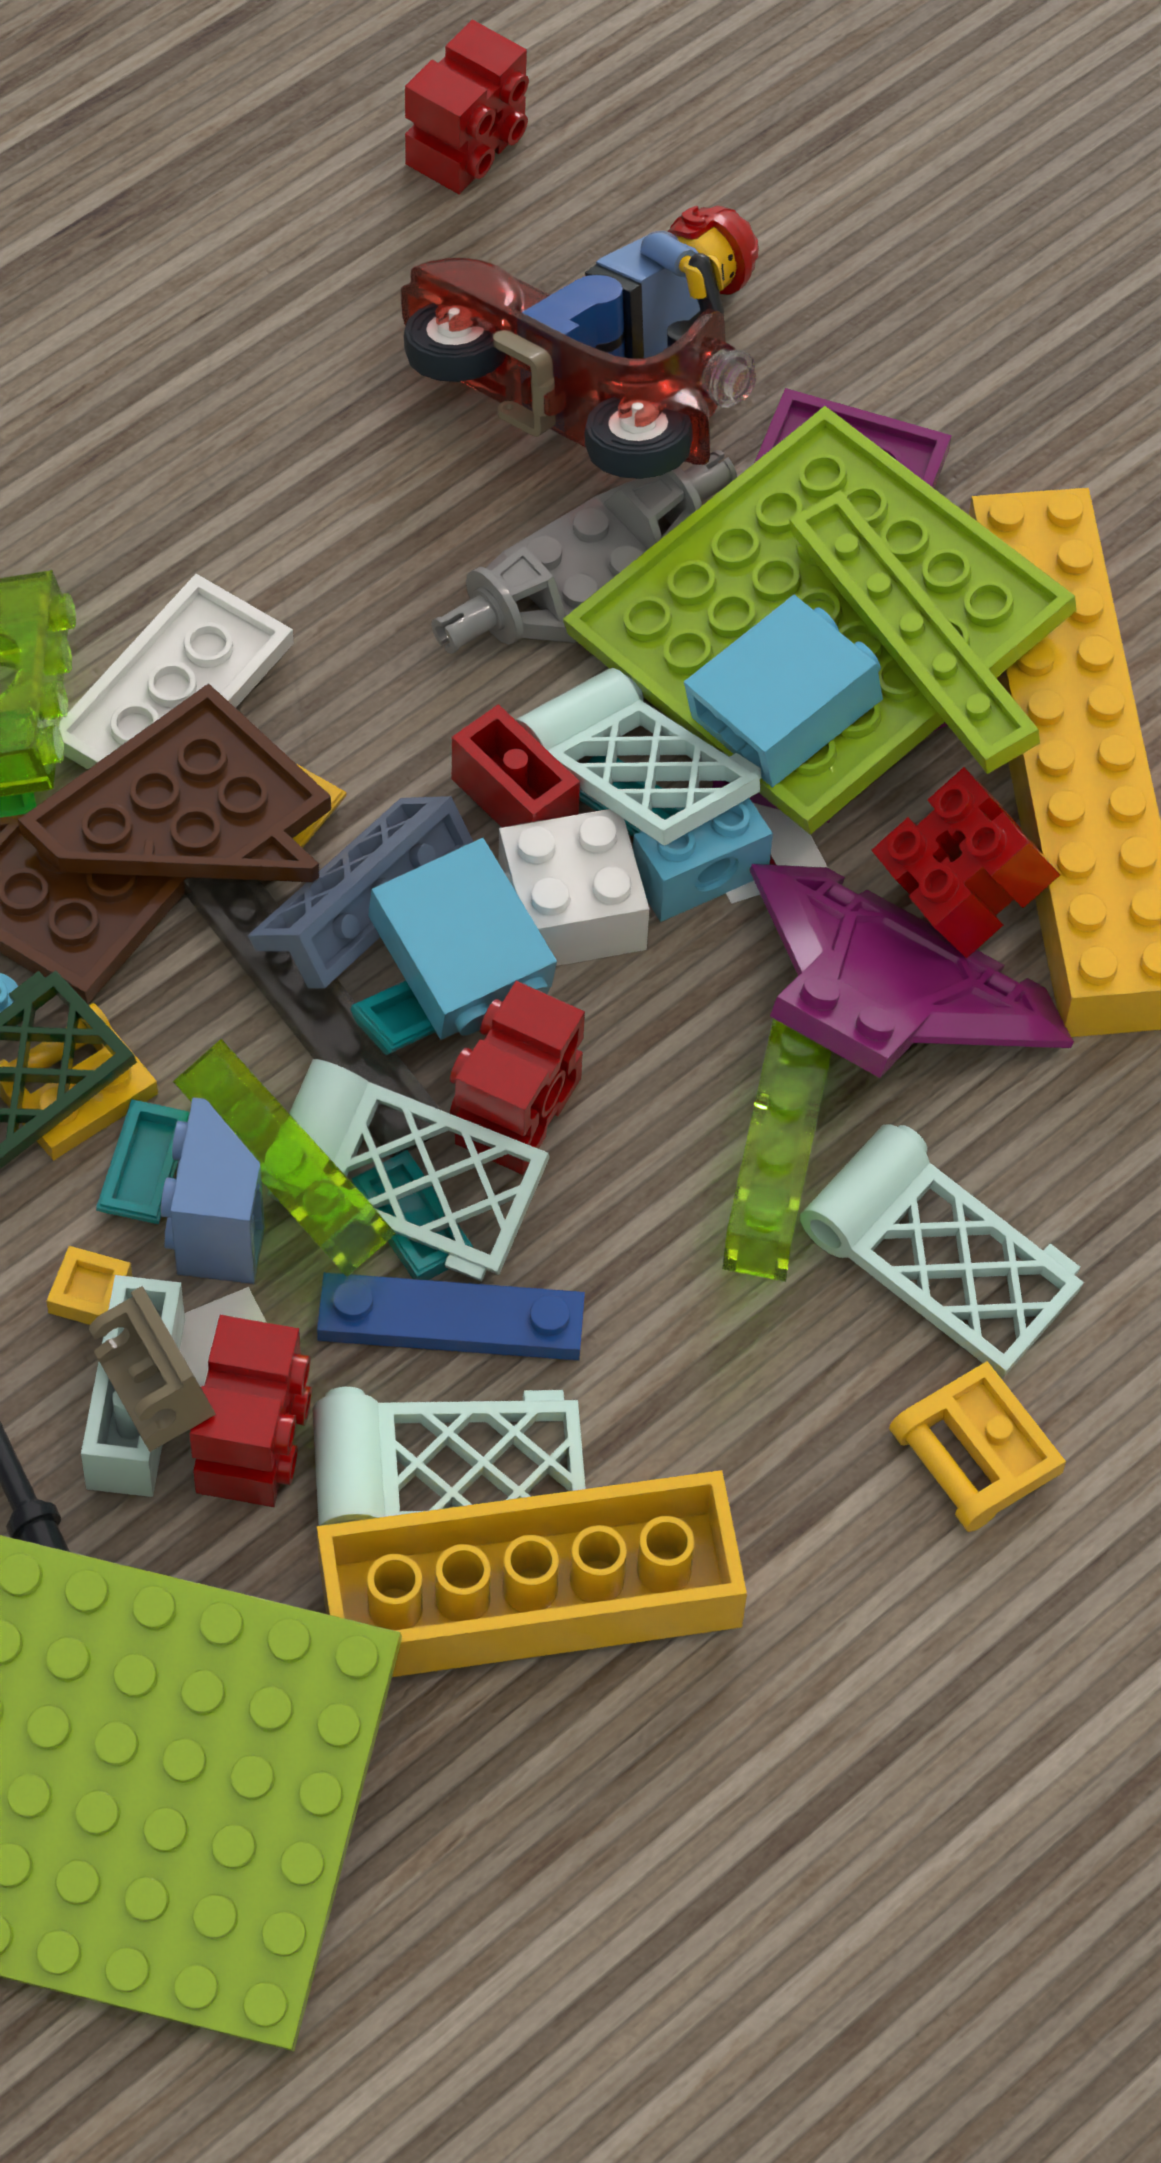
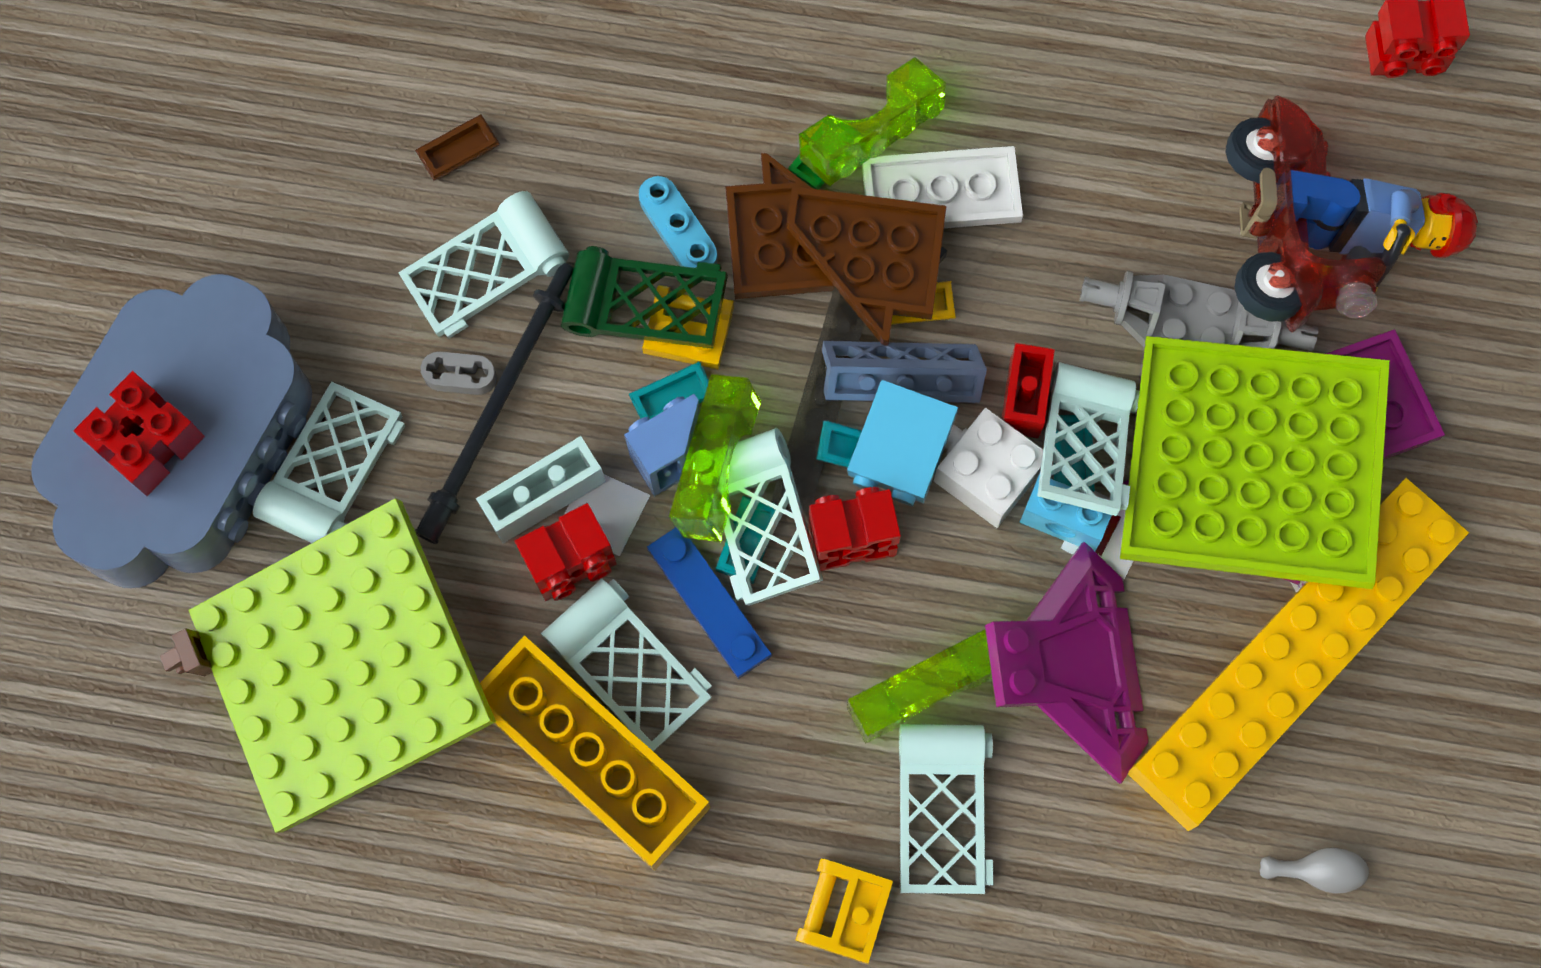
camera: 55 degrees right, 15 degrees up
(84, 1285) = (584, 422): yellow plate -> none
(149, 1371) = (531, 497): dark tan hinge -> none
(784, 689) = (1185, 481): medium azure brick -> none
(915, 632) = (1275, 519): lime plate -> none
(965, 862) = (1170, 649): red brick -> none

